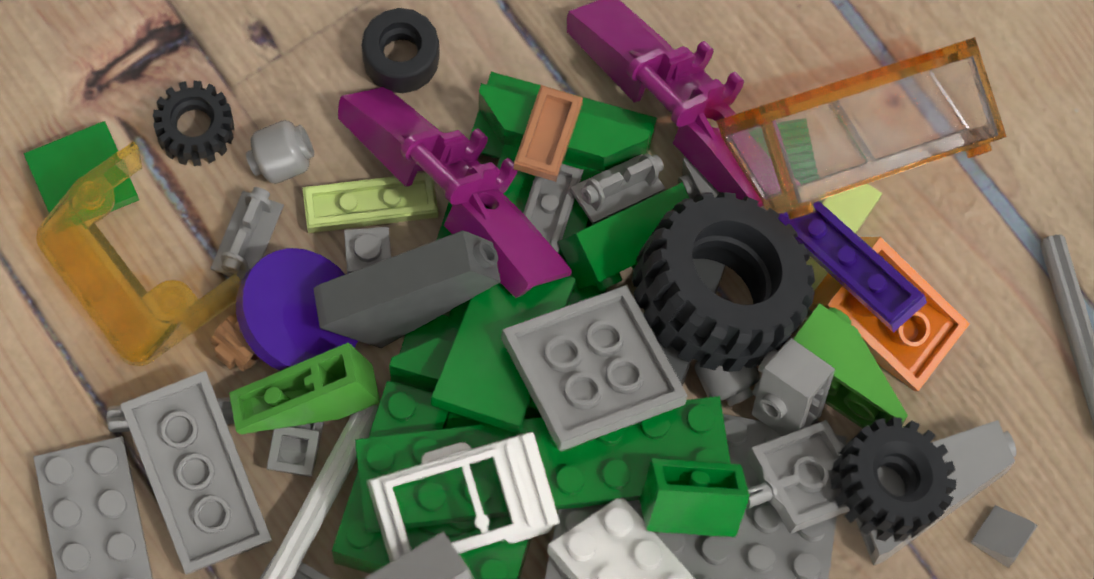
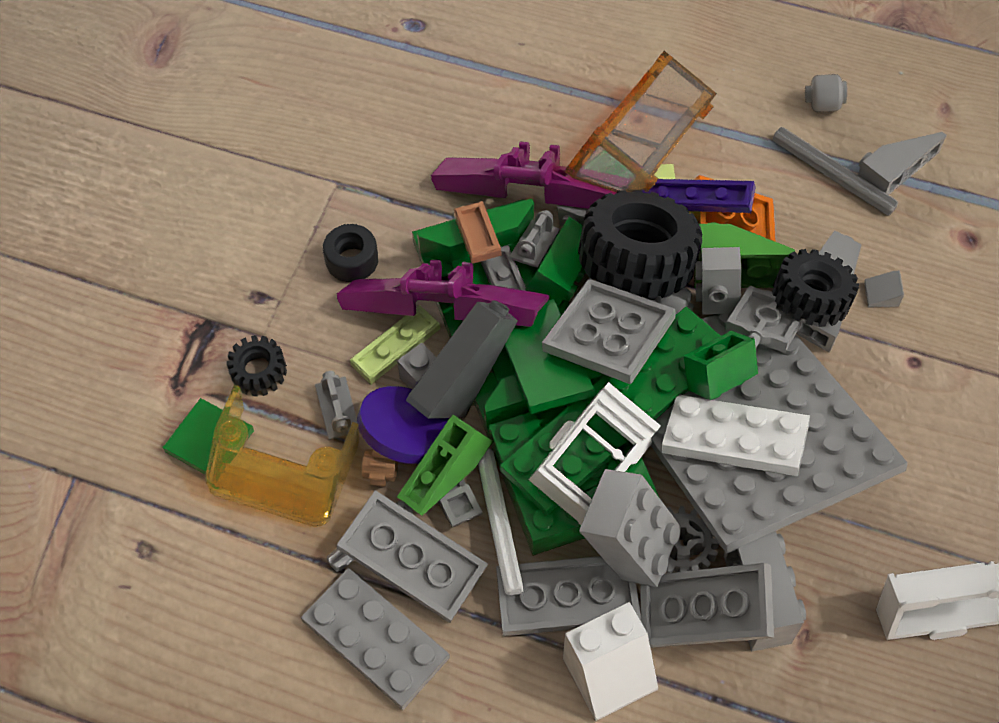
camera: 30 degrees left, 10 degrees down
(280, 151) = (322, 347): light grey head -> none

